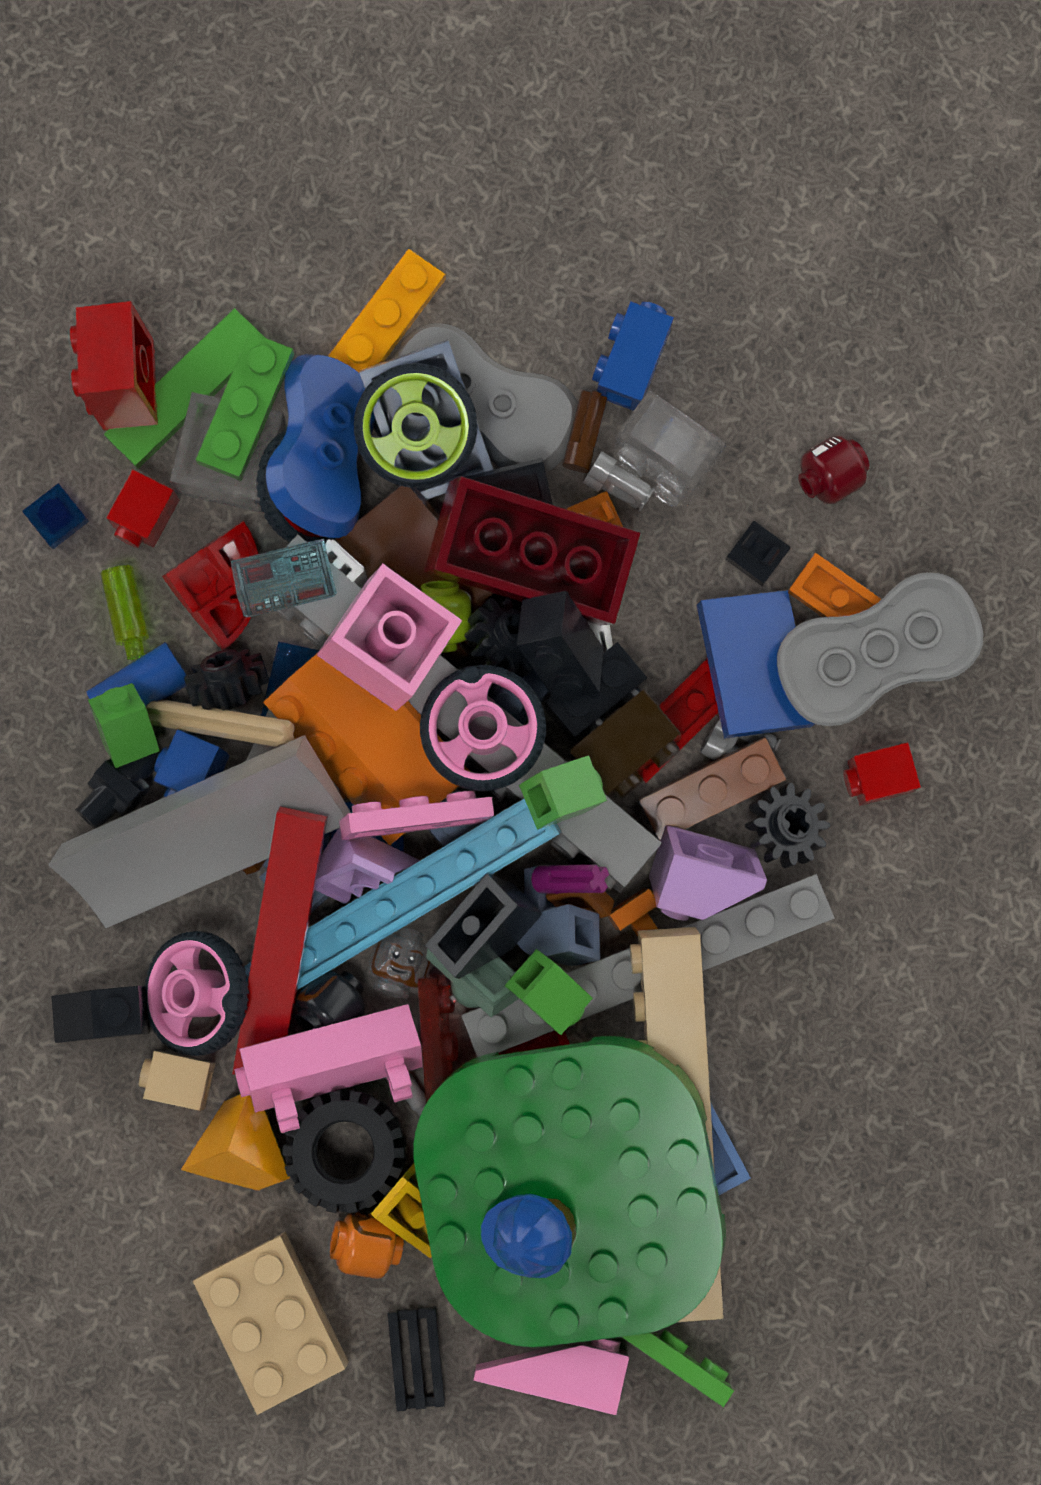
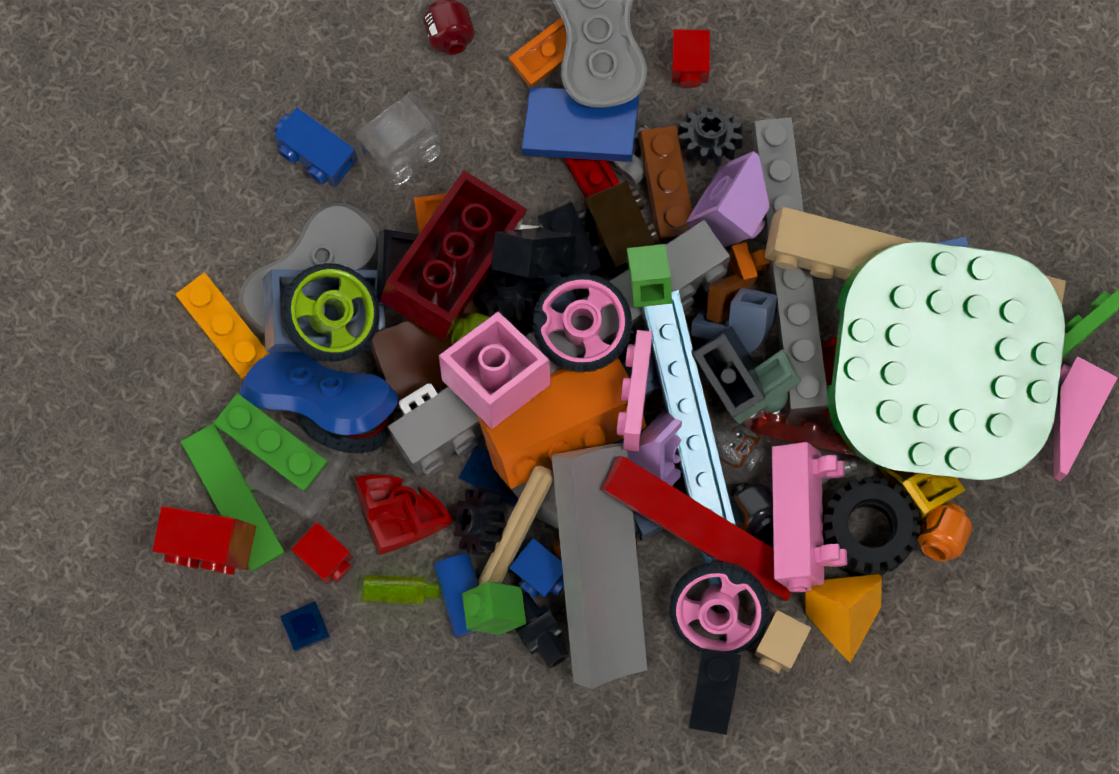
camera: 70 degrees left, 5 degrees down
(271, 1323) = (985, 617): tan brick -> none
(283, 578) = (420, 444): clear light blue slope -> none
(420, 1401) = (1071, 524): black tile -> none
(529, 1235) = (973, 395): blue piece -> none
(549, 992) = (794, 331): bright green brick -> none
(569, 879) = (711, 296): magenta piece -> none
(584, 431) = (361, 201): reddish brown piece -> none
(618, 482) = (404, 191): light grey piece -> none
(758, 553) = (495, 101): black tile -> none

